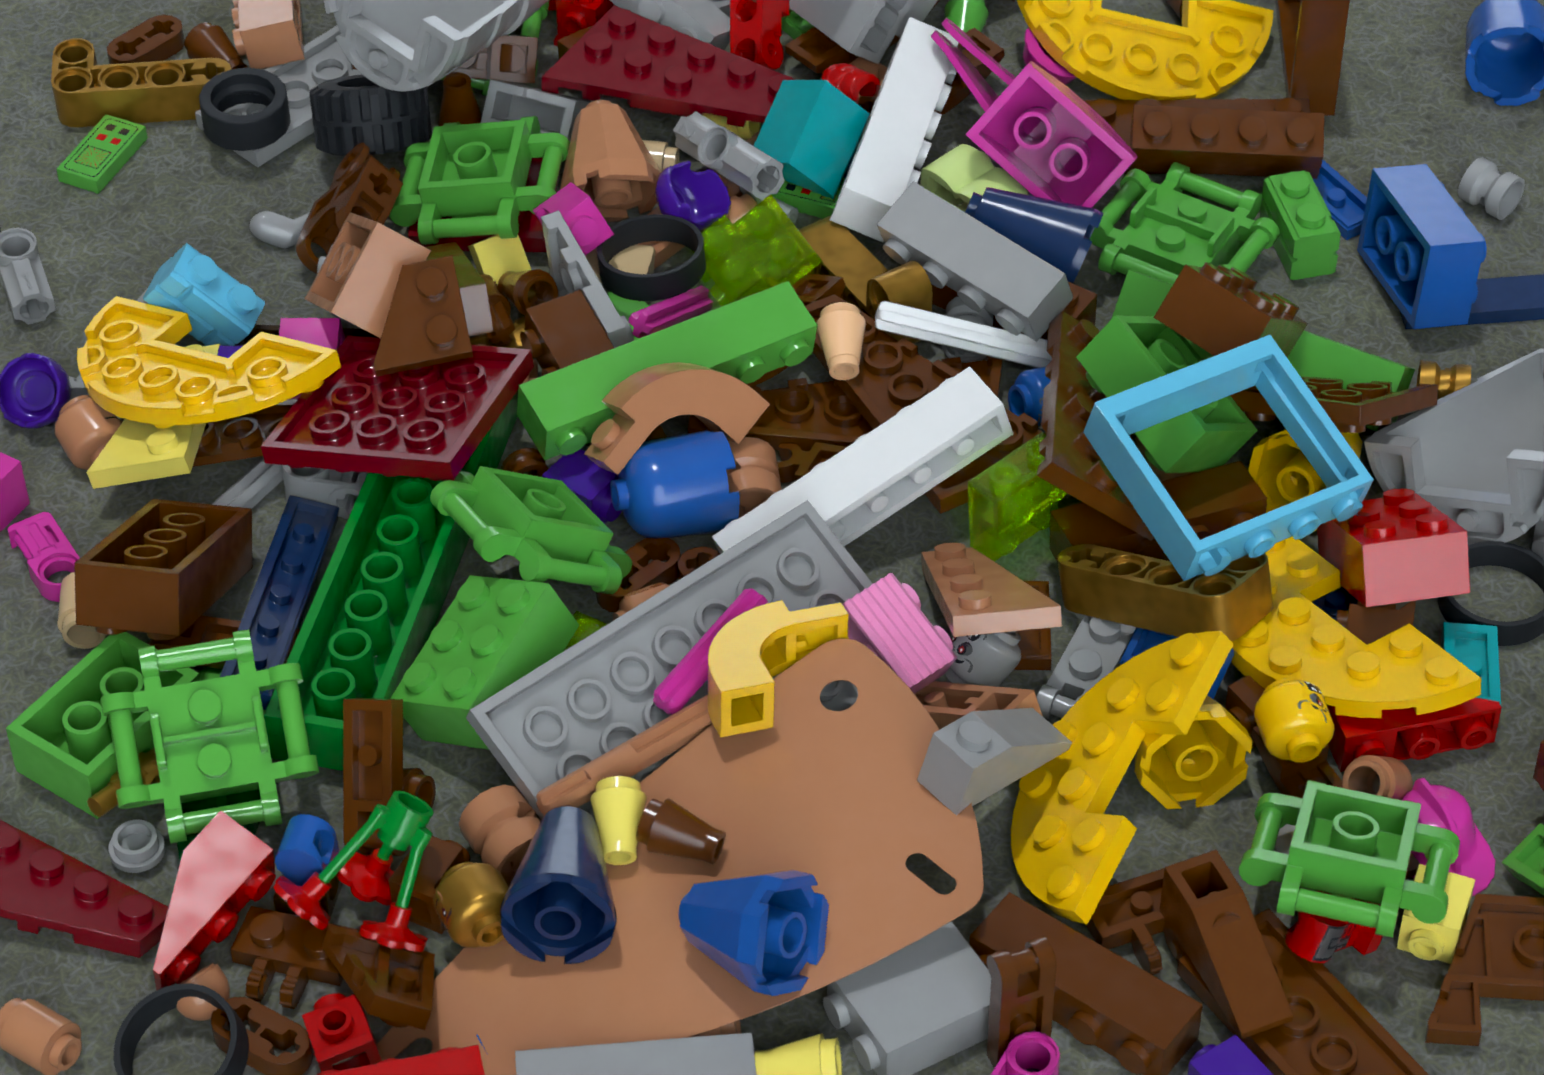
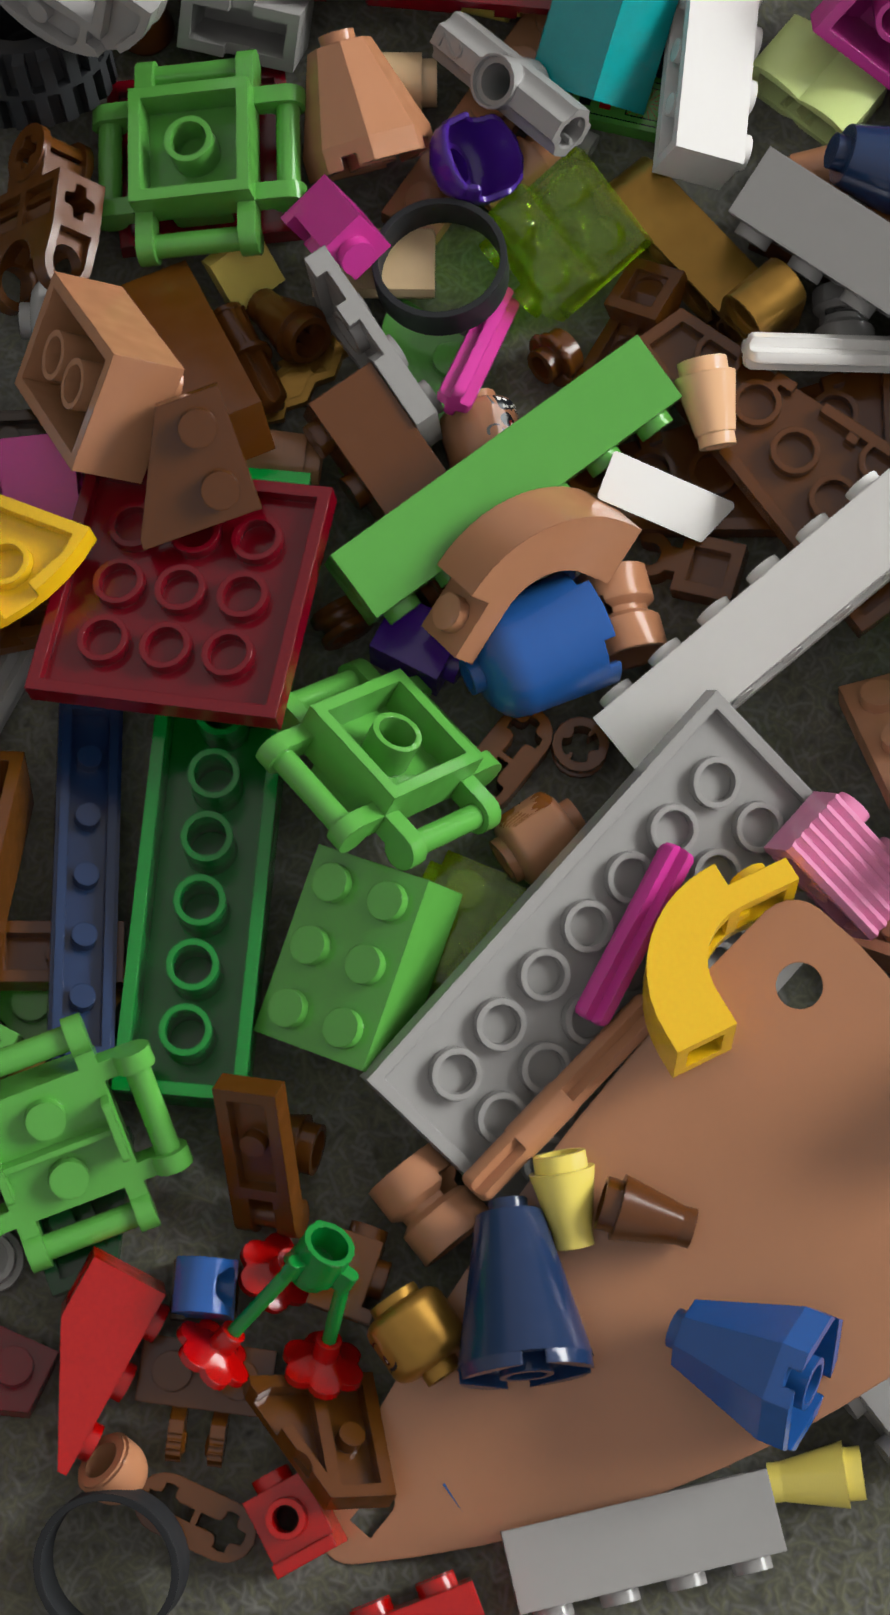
camera: 10 degrees left, 30 degrees up
(796, 402) = (662, 497): none -> white sticker

